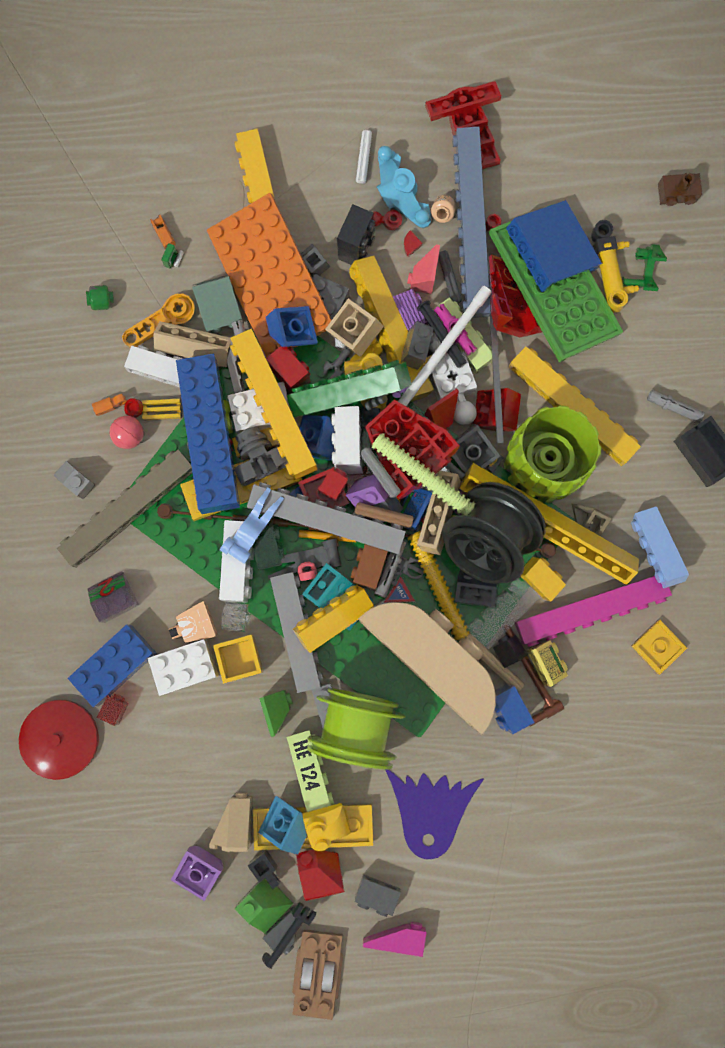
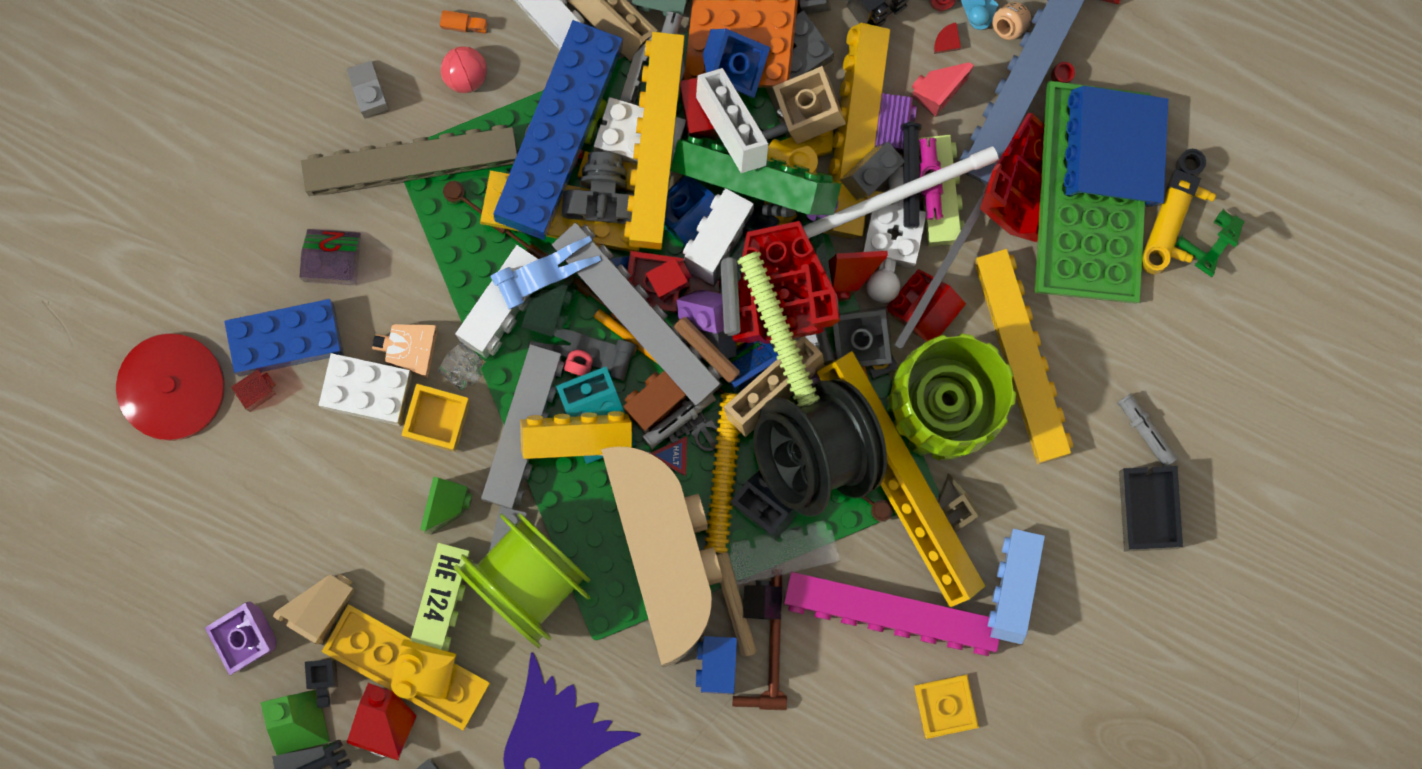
camera: 30 degrees right, 0 degrees up
(133, 407) = (489, 44): red tile -> none
(145, 416) = (541, 75): yellow tile -> none
(284, 826) = (374, 643): dark azure slope -> none
(314, 361) = (732, 120): none -> white brick
(449, 276) = (969, 109): dark grey axle -> none
(542, 578) = (853, 539): yellow brick -> none
(547, 663) = (799, 642): light yellow slope -> none
(680, 189) = (1321, 167): reddish brown brick -> none

